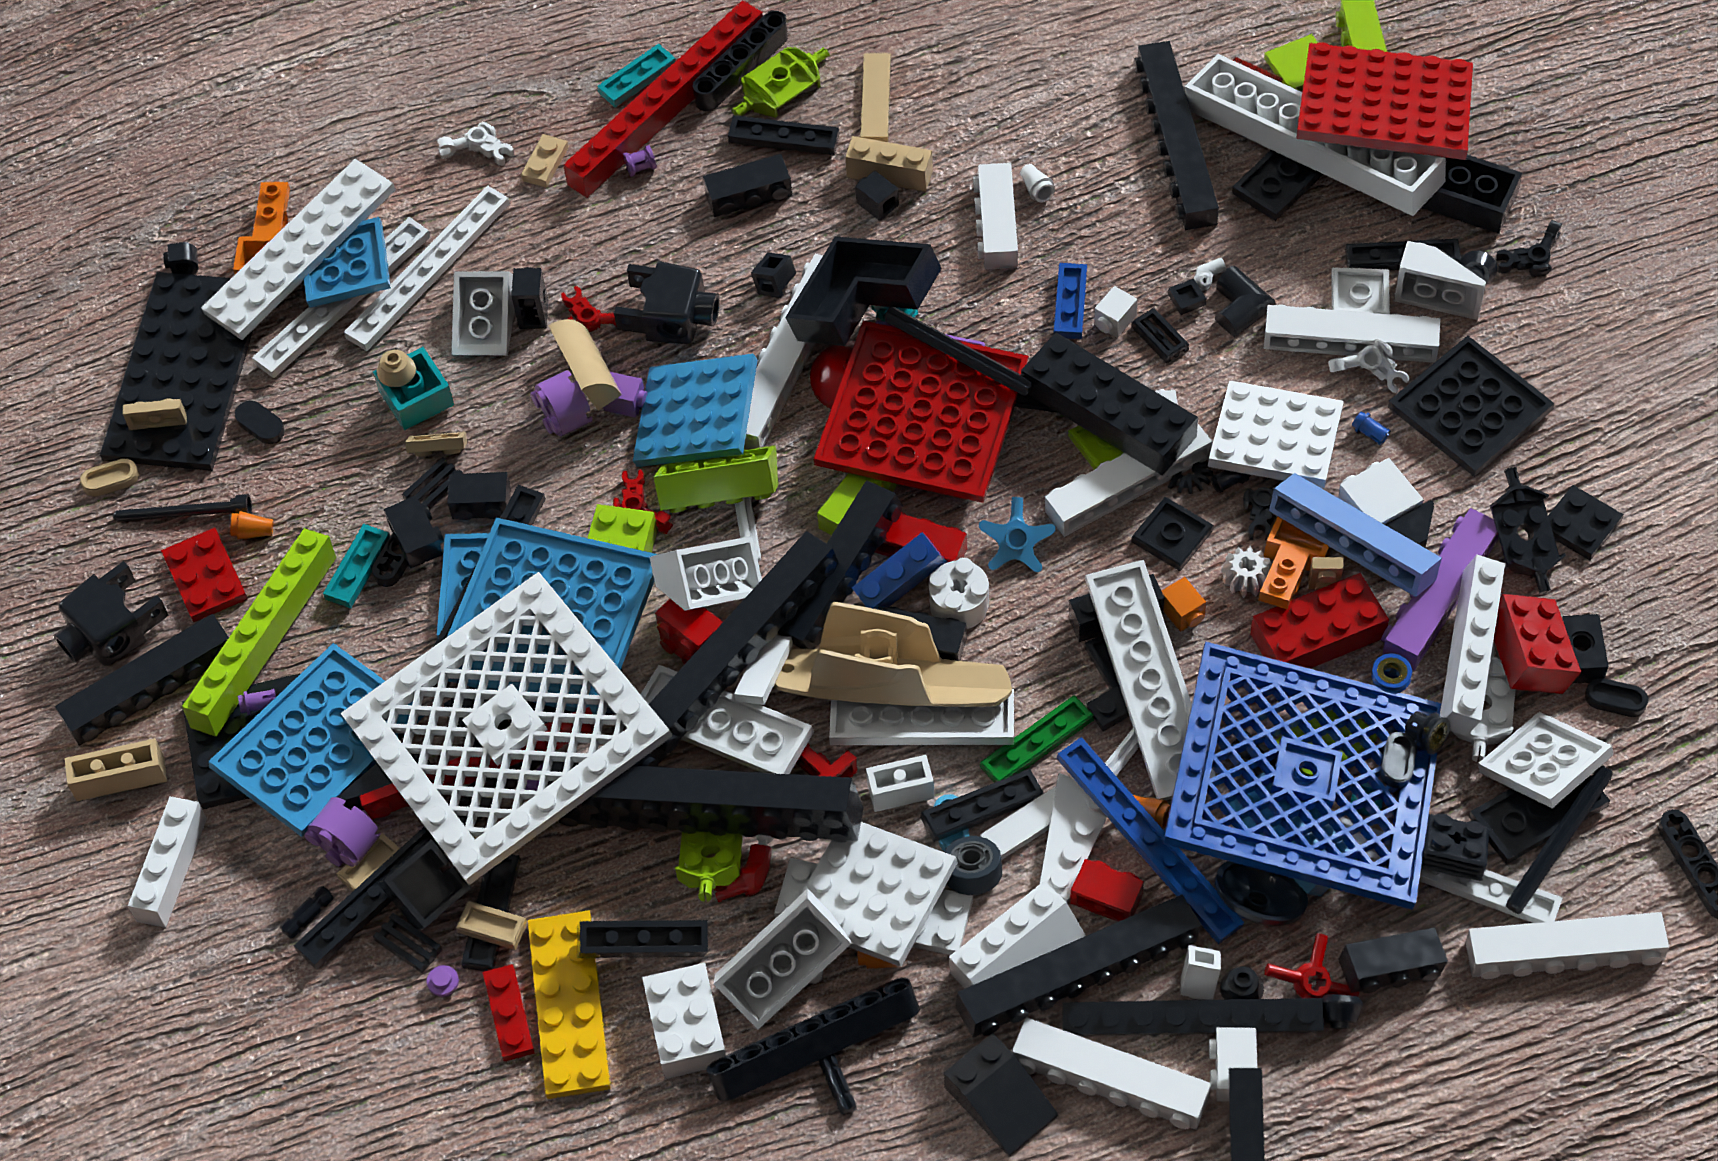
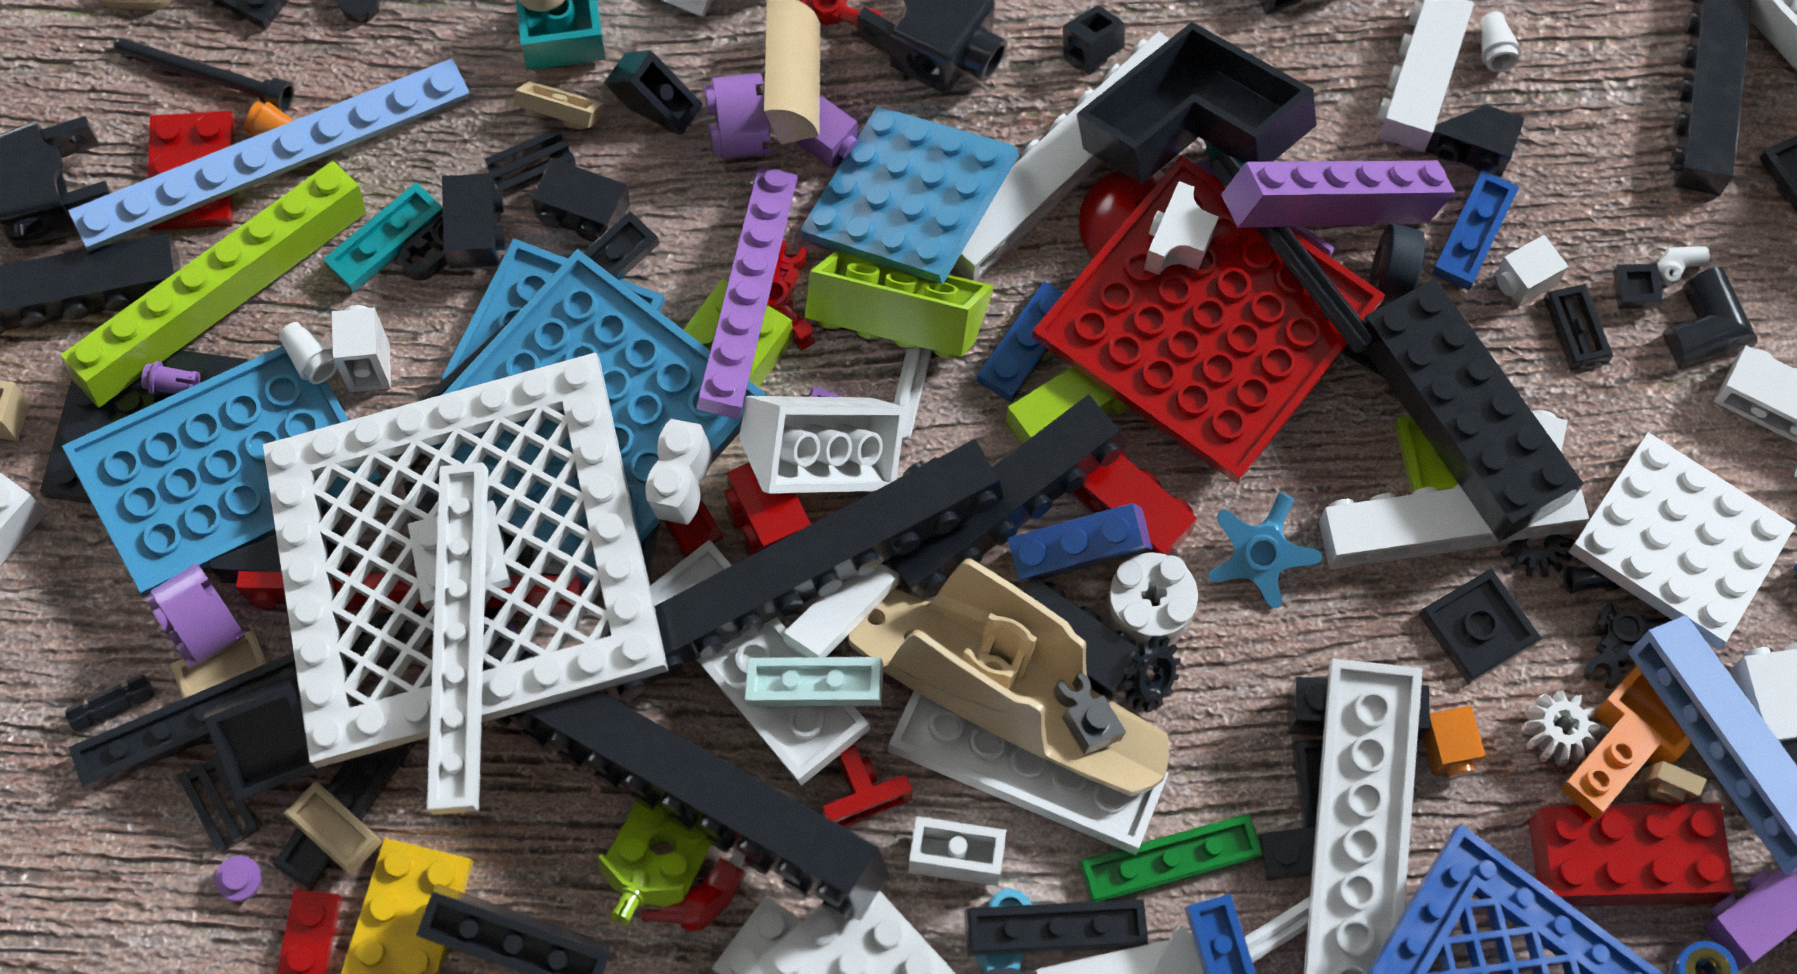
camera: 15 degrees right, 10 degrees up
(256, 542) = (268, 155): none -> light blue plate
(344, 648) = (308, 353): none -> white cone
(377, 635) = (361, 349): none -> white brick
(496, 411) = (653, 90): none -> black slope
(530, 765) = (458, 640): none -> white plate
(619, 503) = (747, 294): none -> medium lavender plate
(626, 618) = (676, 476): none -> white brick
(643, 664) = (696, 532): none -> red tile
(766, 713) = (814, 681): none -> light aqua plate
(809, 479) = (1018, 352): none -> blue plate
(883, 364) = (1180, 232): none -> white brick
(948, 672) = (1088, 719): none -> plate
(972, 305) = (1337, 193): none -> medium lavender brick
(981, 648) = (1160, 657): none -> black gear
(1028, 333) = (1397, 261): none -> black wheel
(1048, 245) = (1478, 139): none -> black slope

